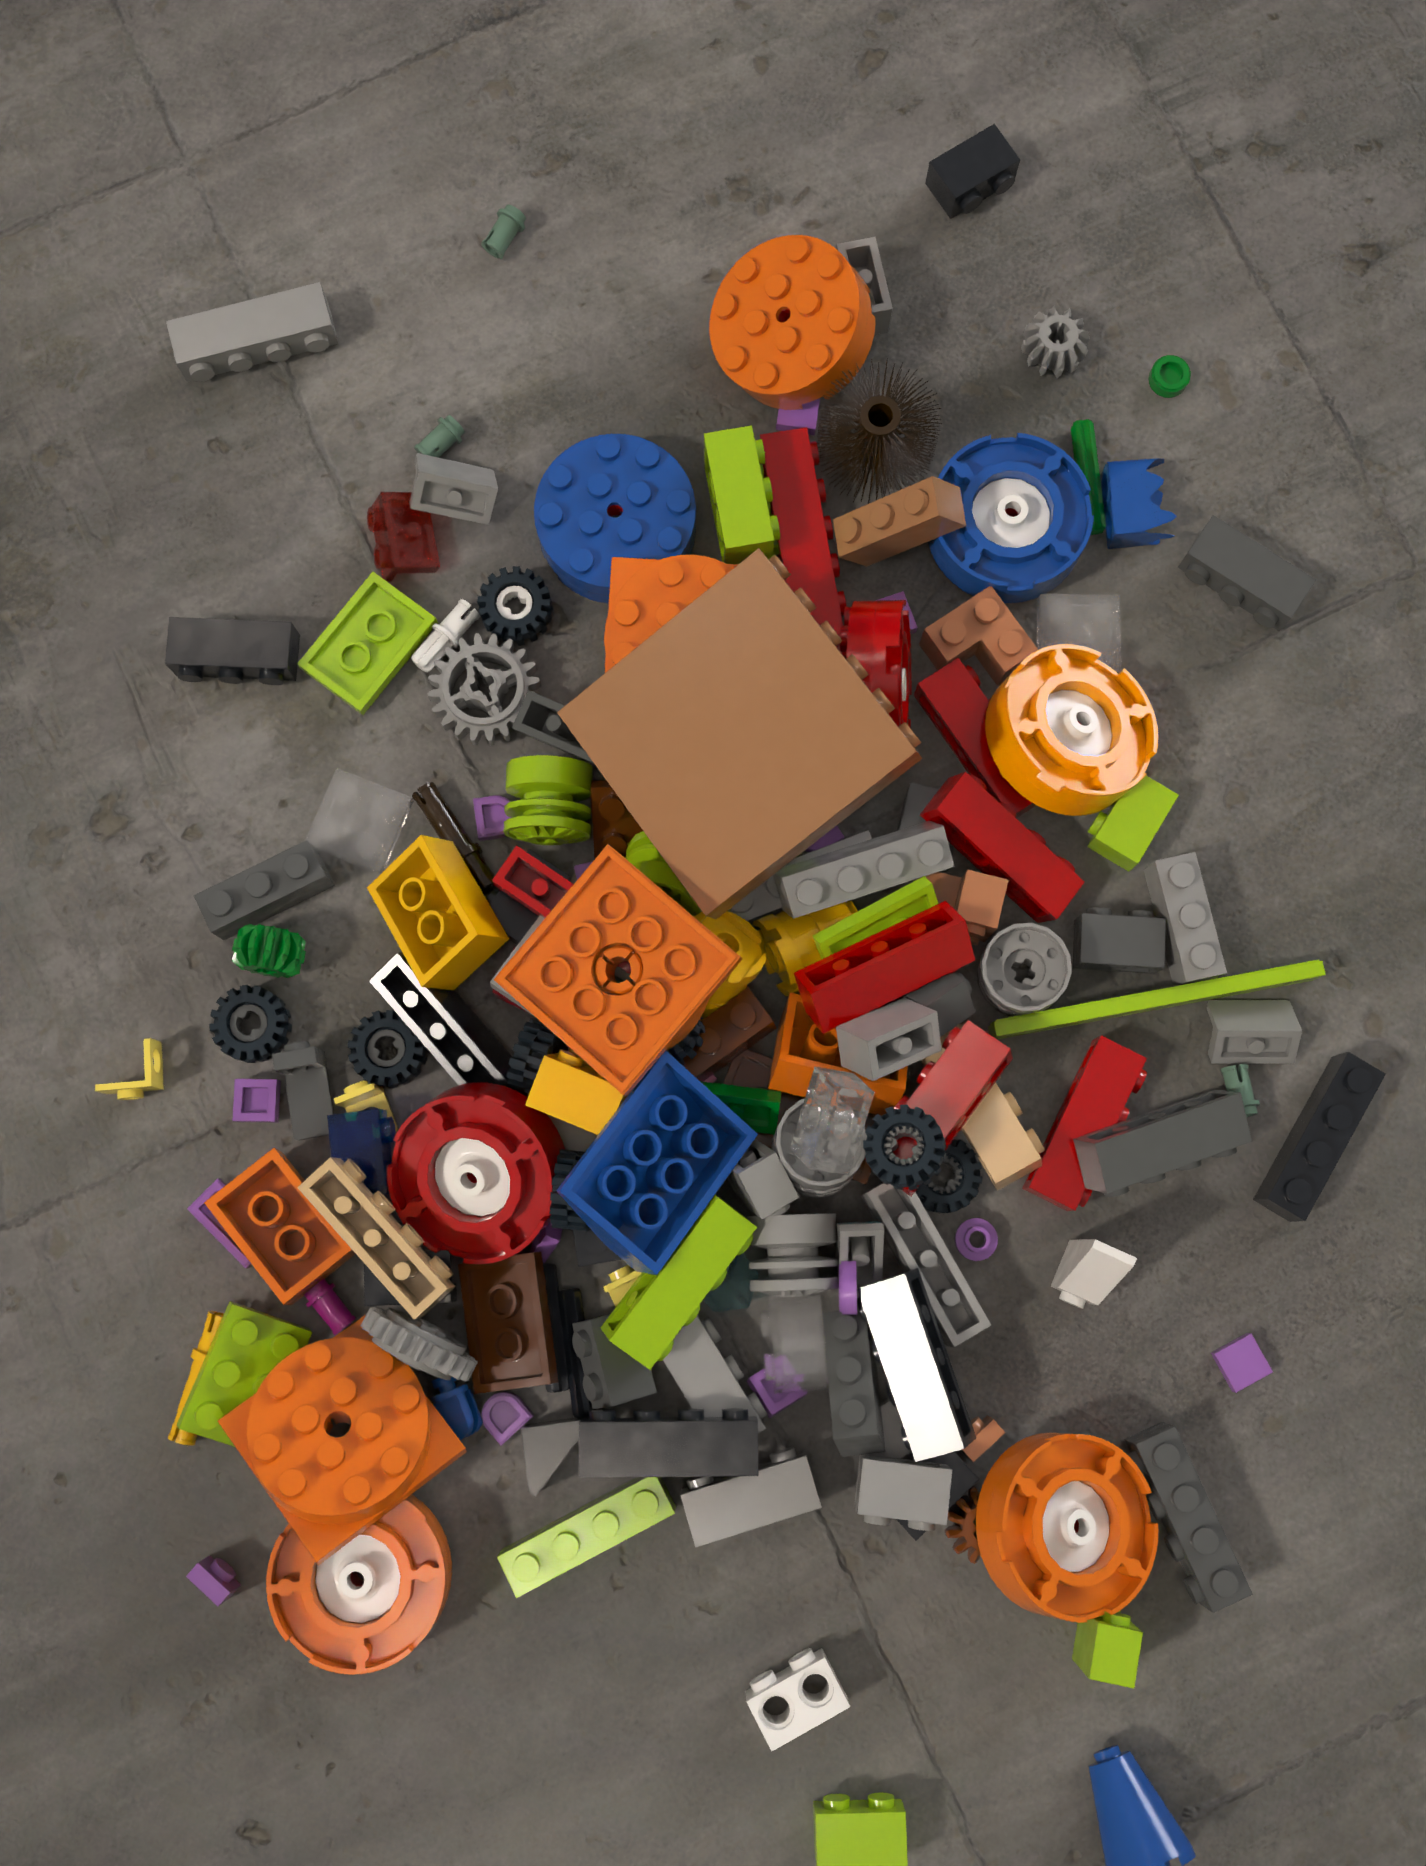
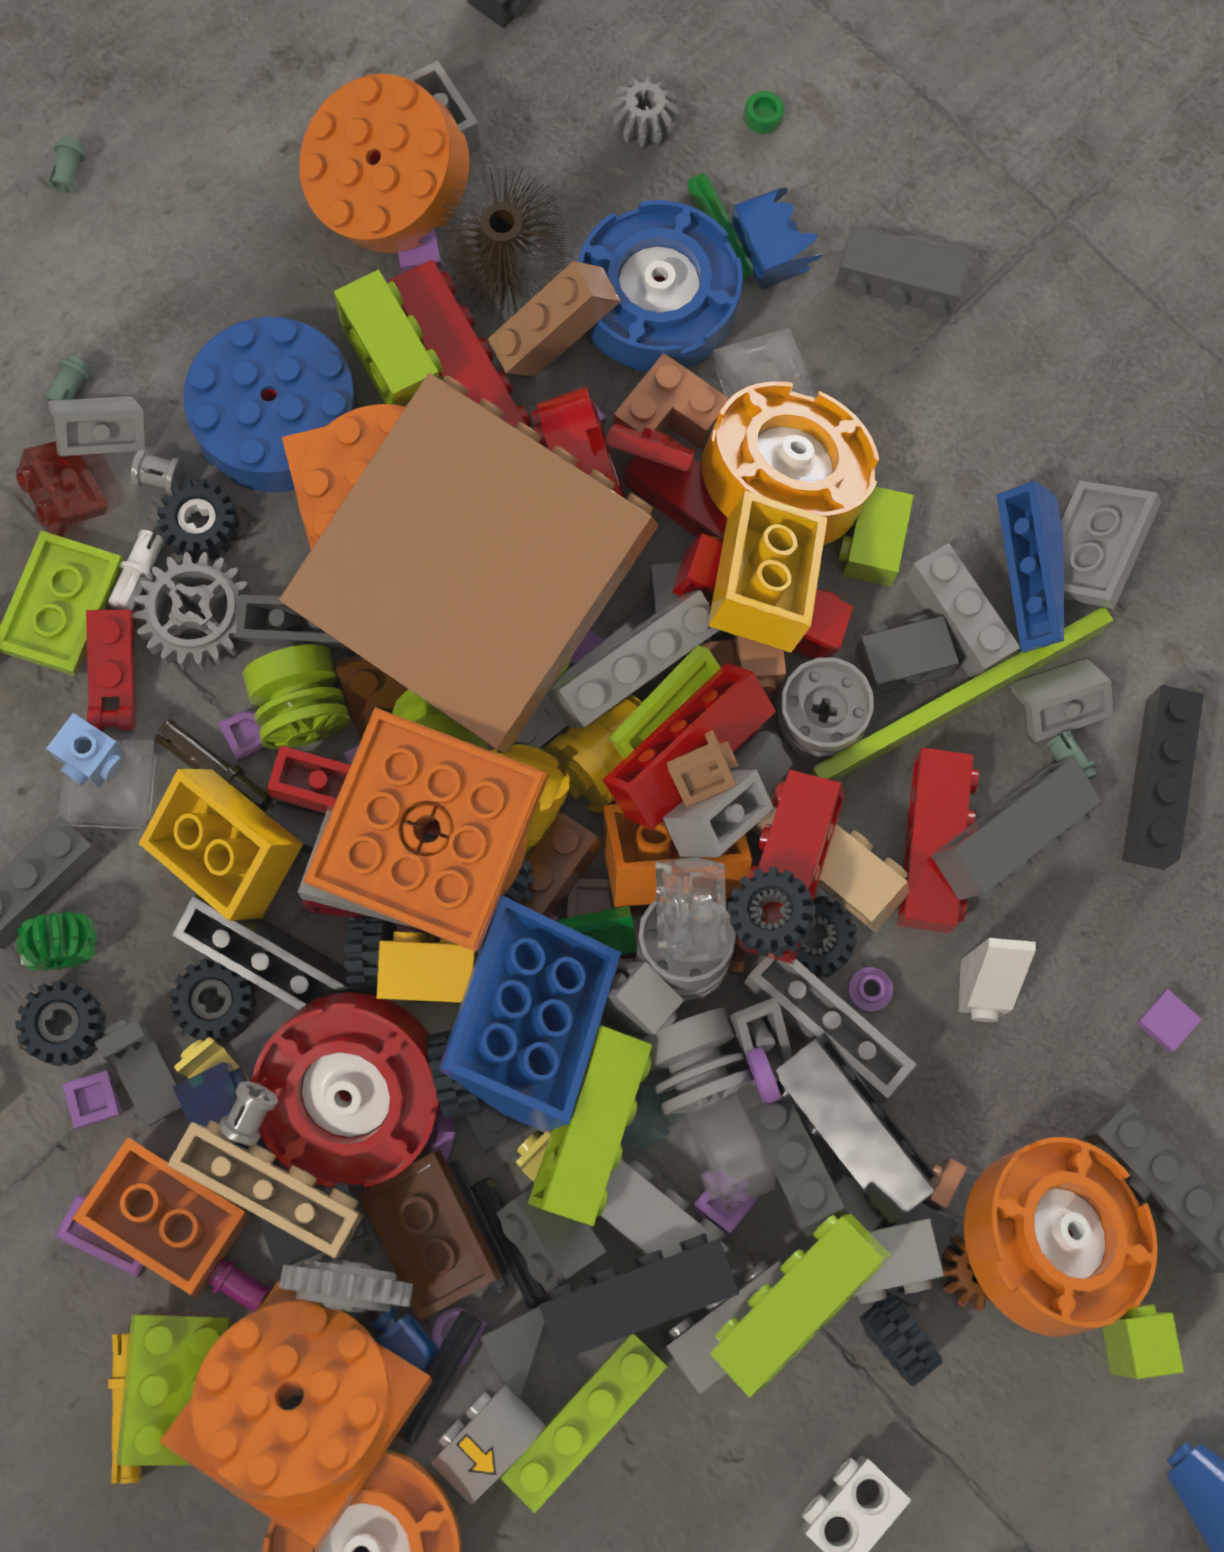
camera: 25 degrees left, 5 degrees down
(347, 790) = (86, 752): none -> light blue brick
(382, 1165) = (248, 1113): none -> light grey bush
(394, 719) = (111, 668): none -> red plate
(478, 1445) = (441, 1372): none -> black axle
(493, 548) = (142, 471): none -> light grey bush
(496, 1523) = (488, 1444): none -> light grey brick
(809, 1504) = (799, 1304): none -> lime brick
(888, 997) = (704, 771): none -> medium nougat bracket
(891, 1564) = (901, 1340): none -> black bush
(945, 674) = (651, 446): none -> red plate
(1012, 830) = (768, 572): none -> yellow brick
(1270, 897) = (1034, 563): none -> blue slope
(1337, 897) = (1103, 539): none -> light grey plate

